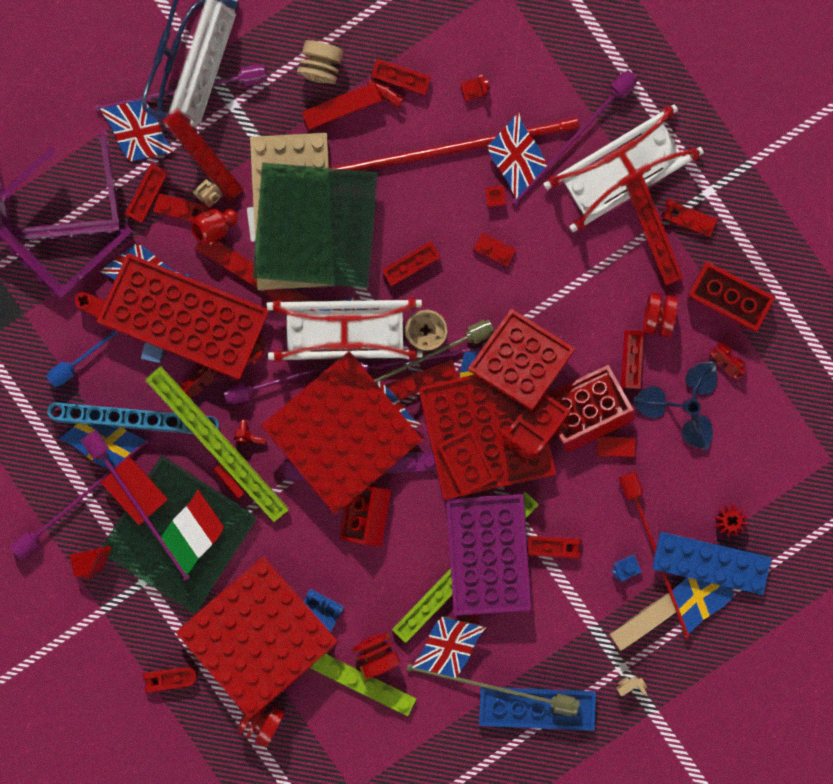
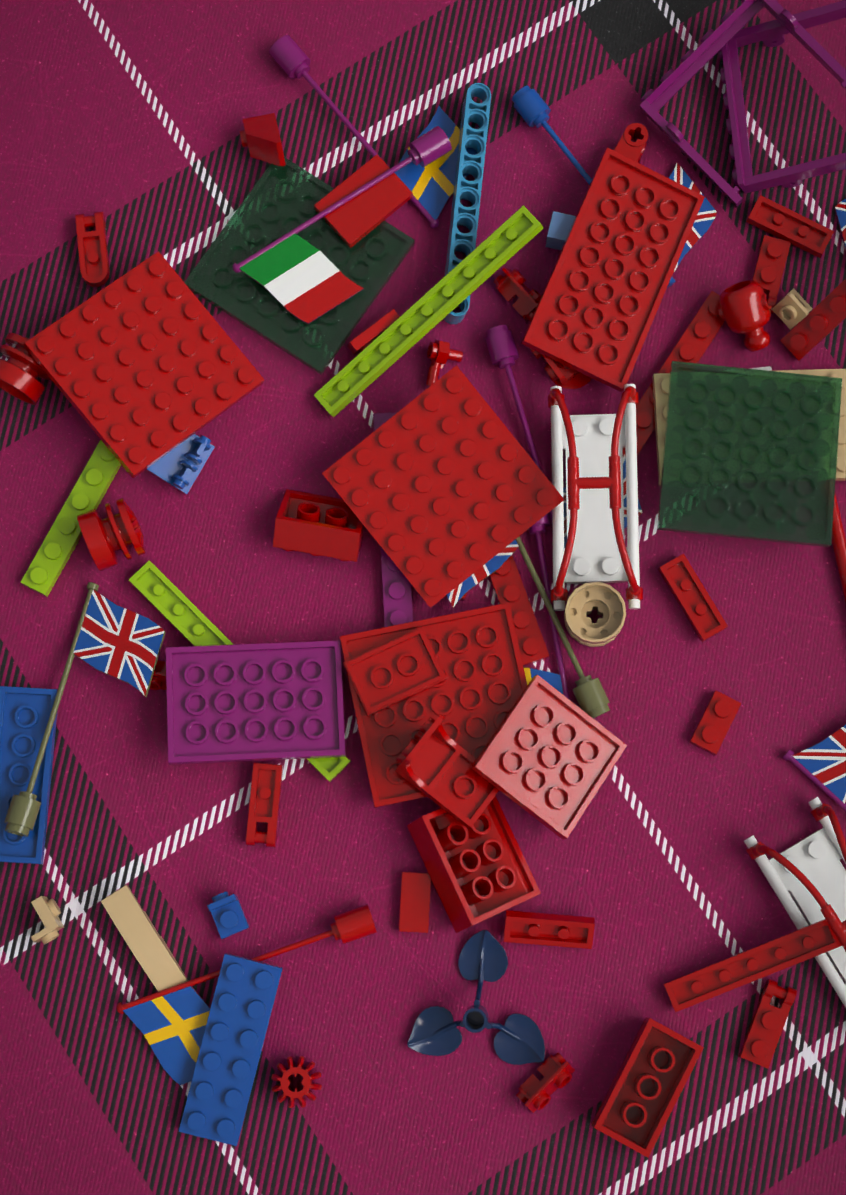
camera: 90 degrees right, 10 degrees down
(495, 196) = (796, 724): red plate -> none
(662, 315) = (618, 973): red wheel -> none

